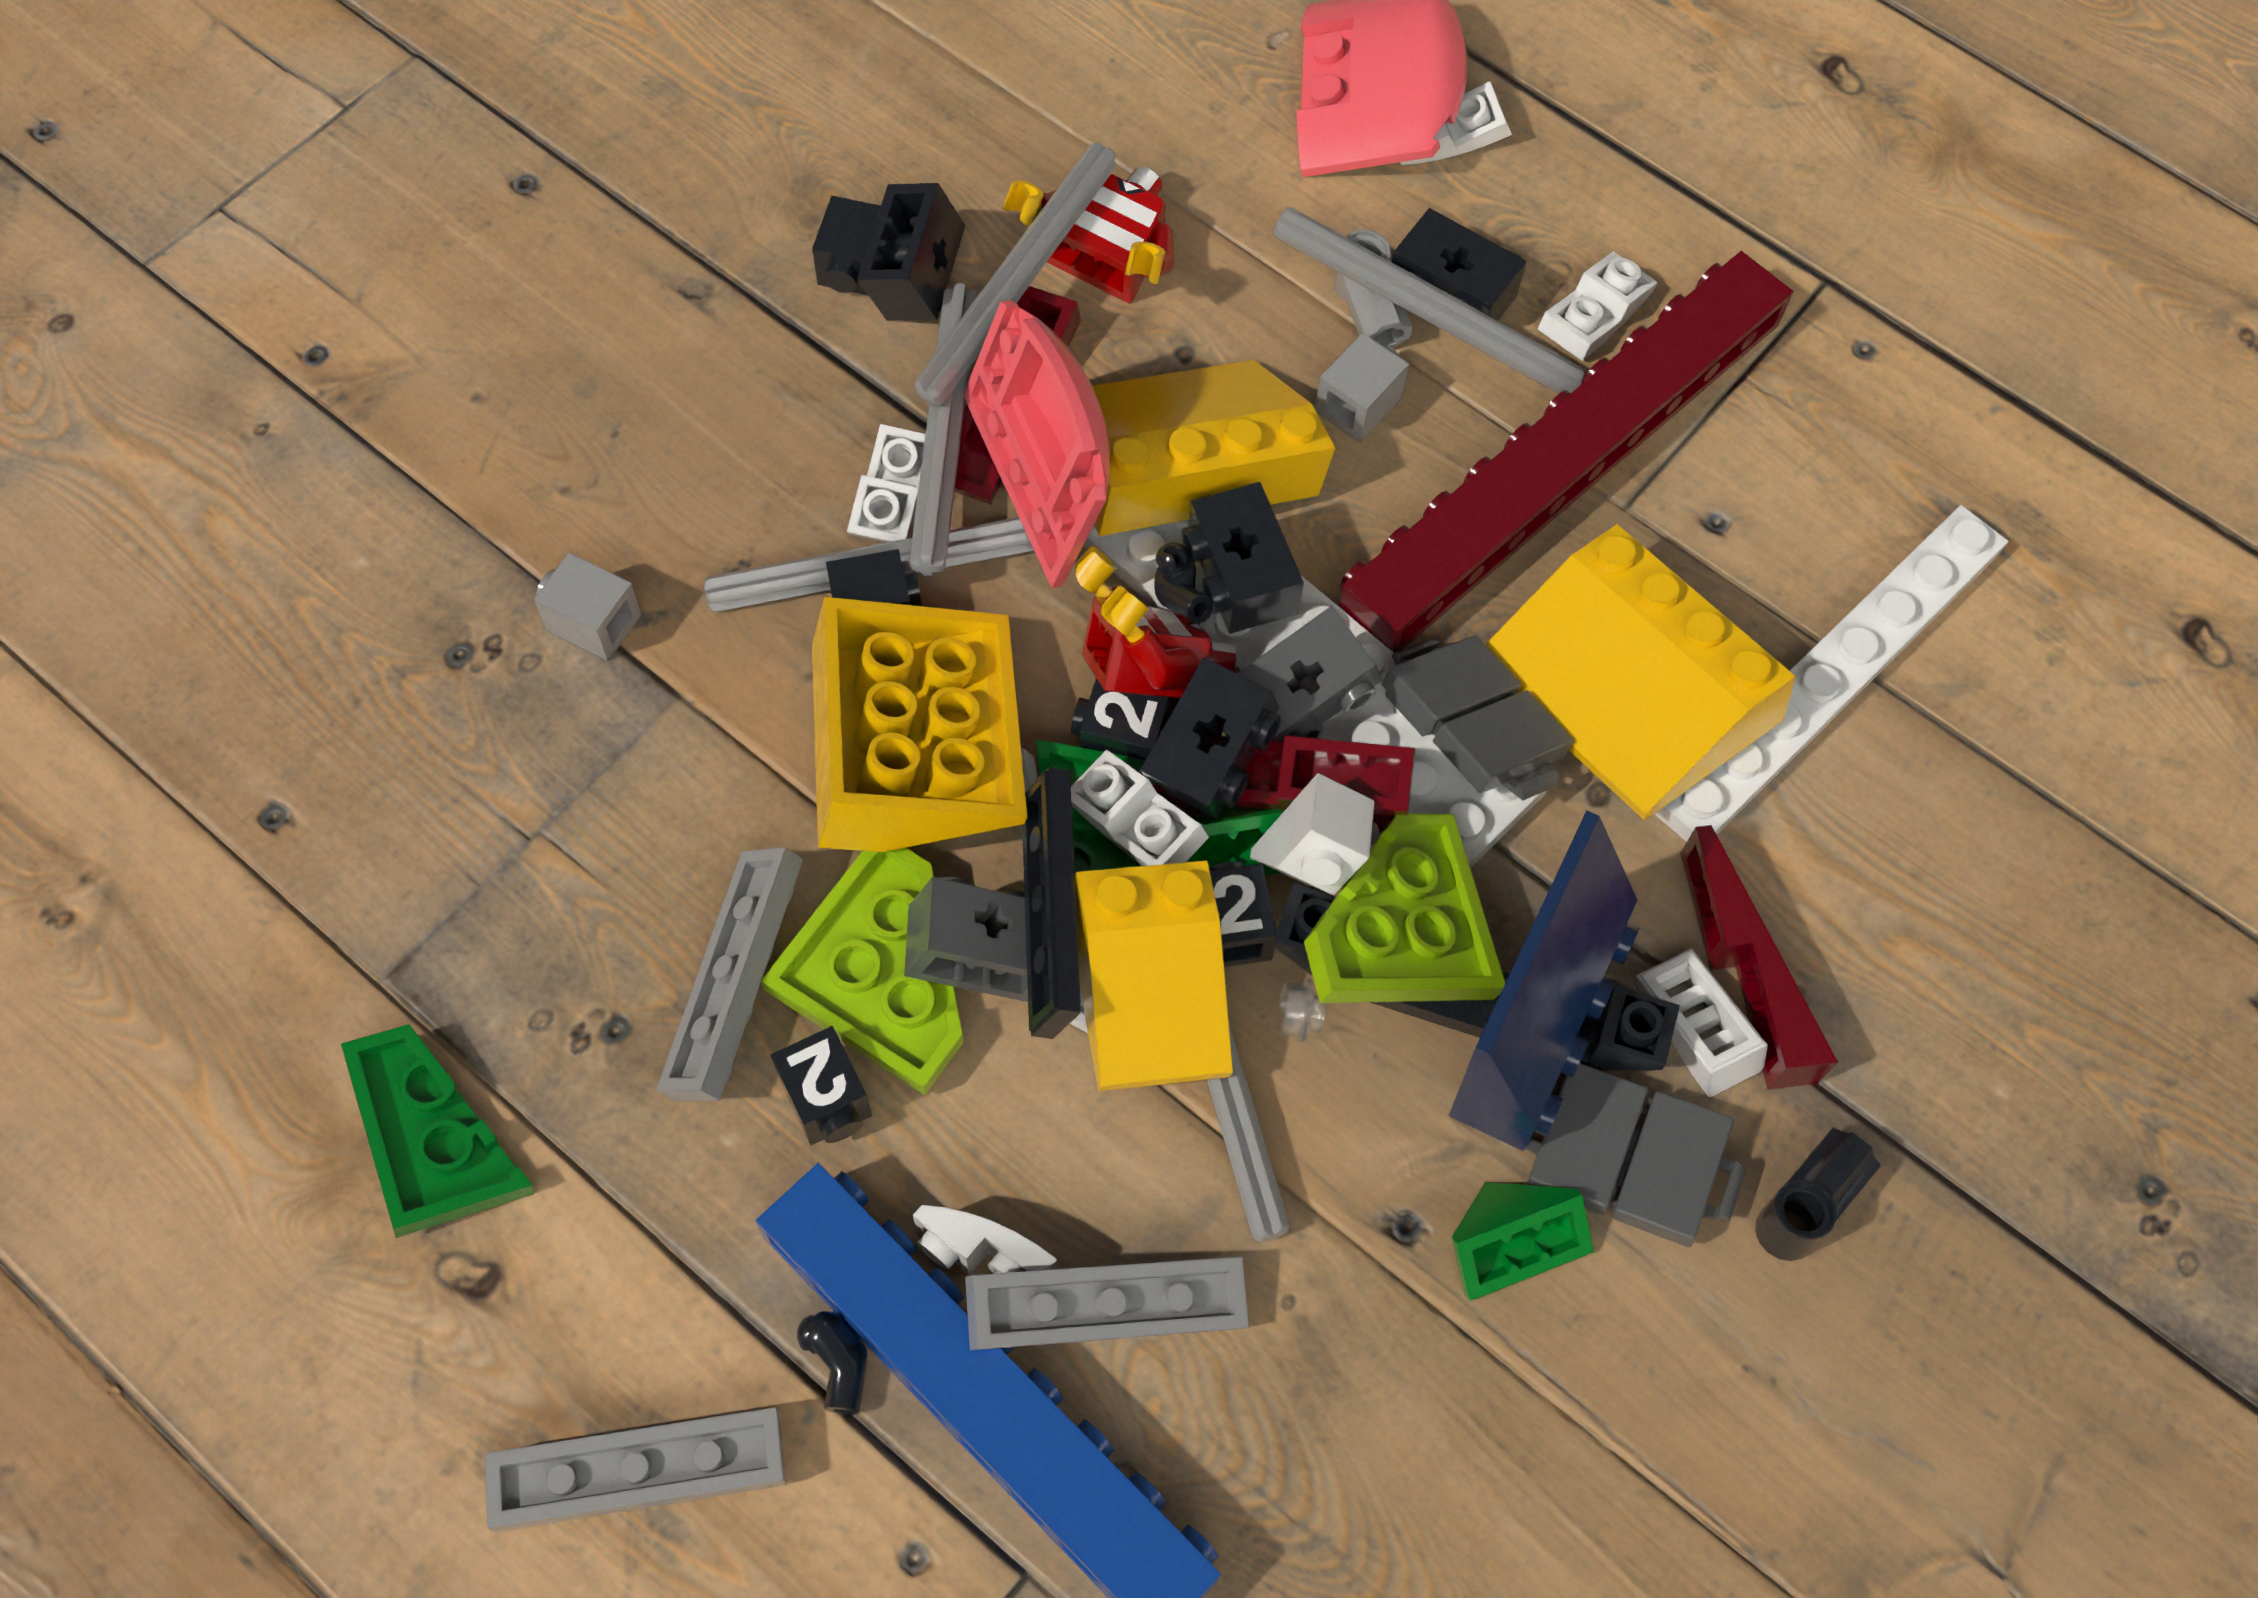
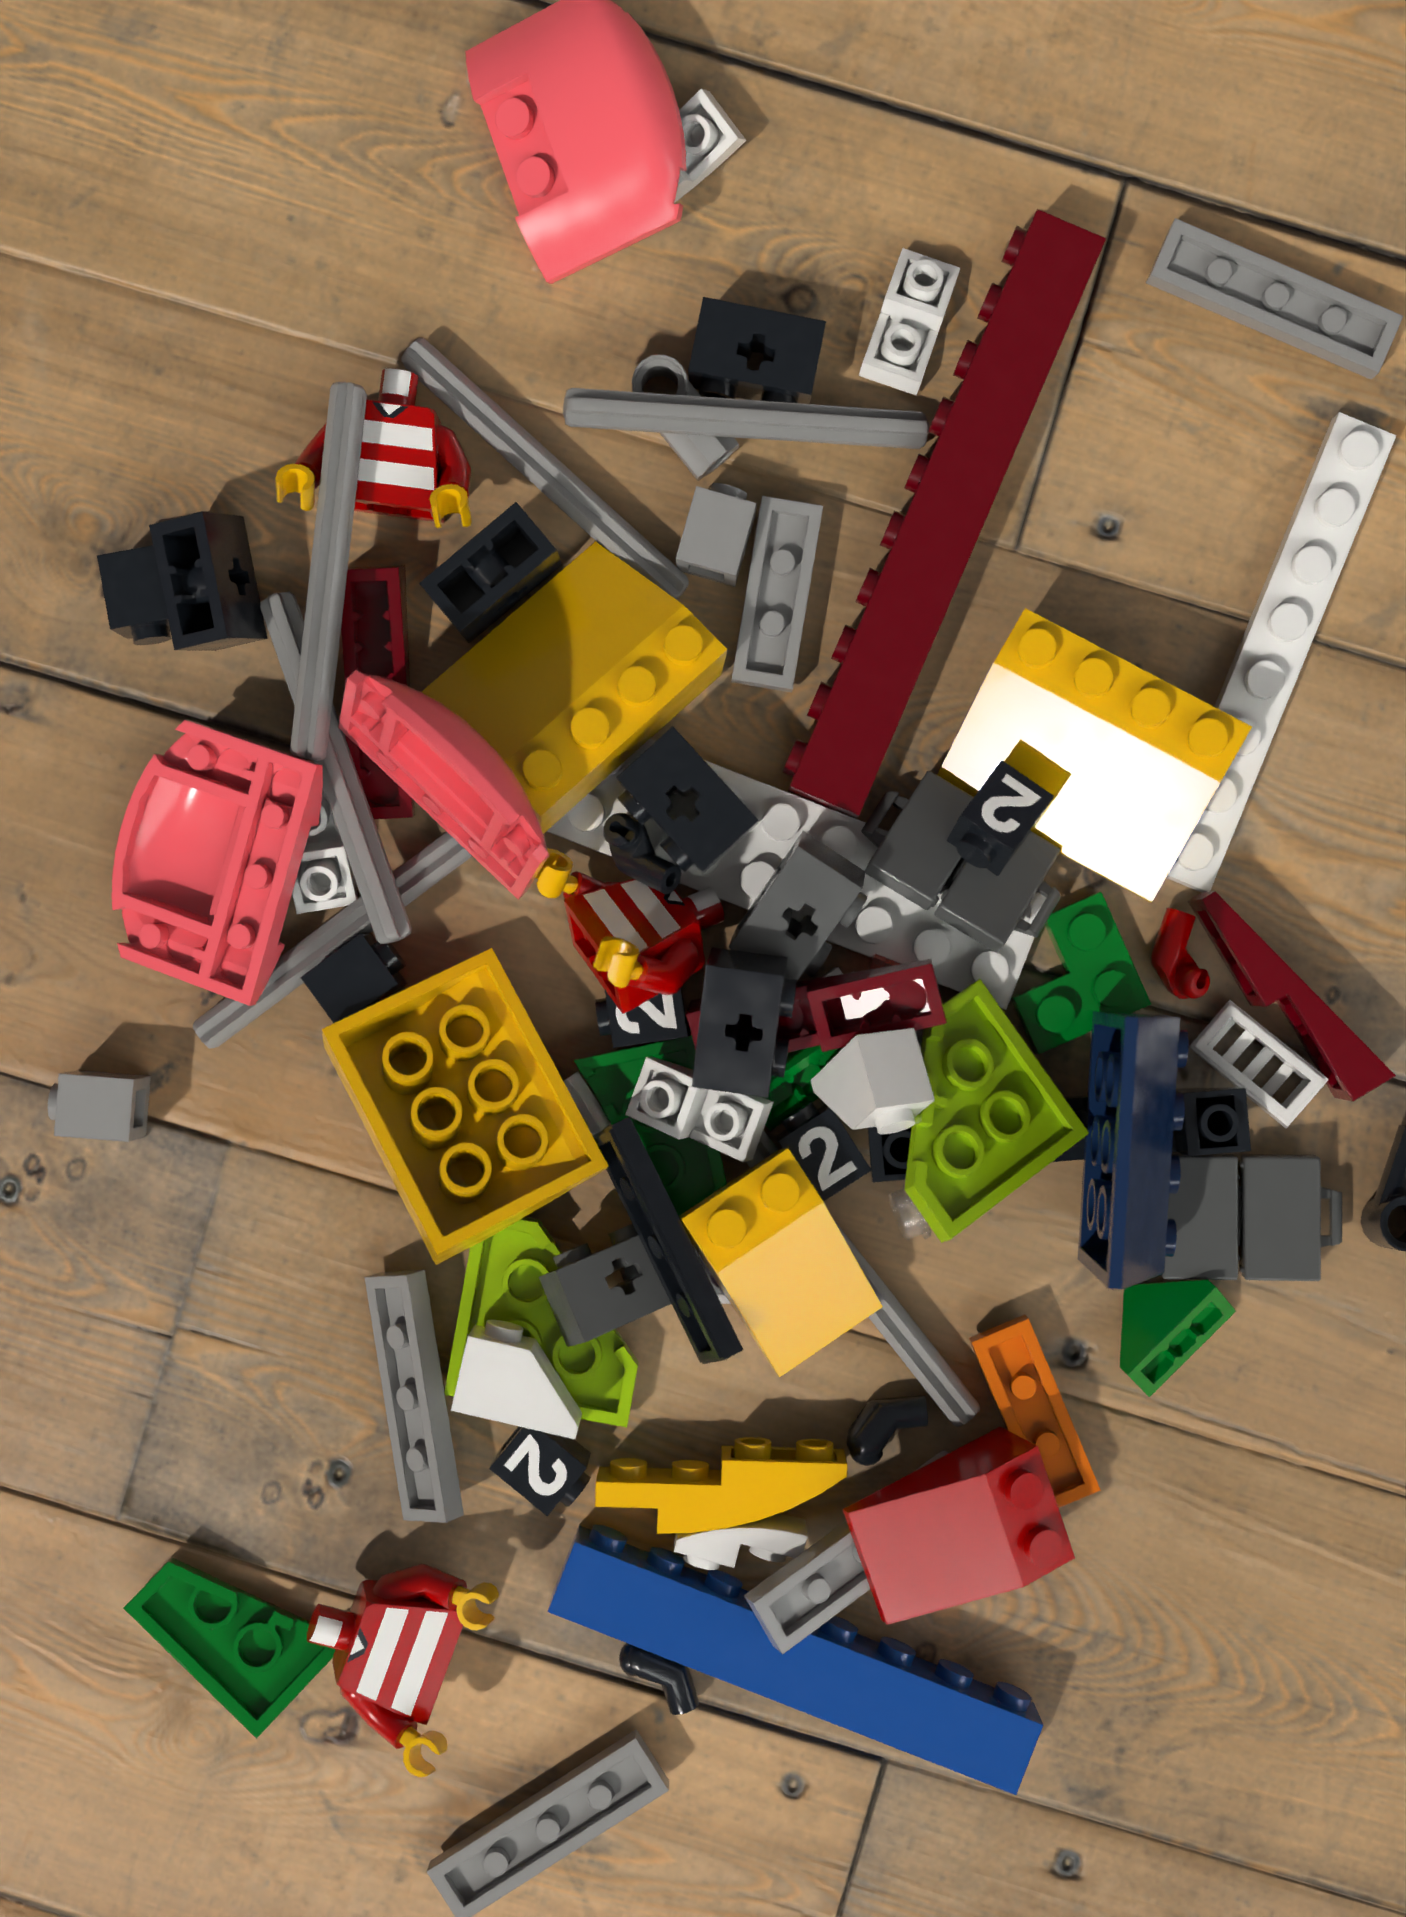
camera: 15 degrees left, 25 degrees up
(585, 1197) = (398, 1650): none -> red torso
(802, 448) = (213, 859): none -> coral slope
(833, 978) = (513, 1382): none -> white slope
(1019, 1193) = (748, 1488): none -> yellow slope
(1155, 332) = (492, 572): none -> black brick
(1181, 1199) = (878, 1423): none -> black arm
(1216, 1317) = (960, 1528): none -> slope
(1229, 281) = (541, 466): none -> light grey axle
(1343, 1259) = (1034, 1405): none -> orange plate
(1395, 453) = (777, 594): none -> light grey plate
(1516, 887) = (1096, 976): none -> green plate
(1527, 677) = (999, 818): none -> black brick
(1648, 881) = (1172, 959): none -> red arm
(1929, 402) = (1274, 299): none -> light grey plate

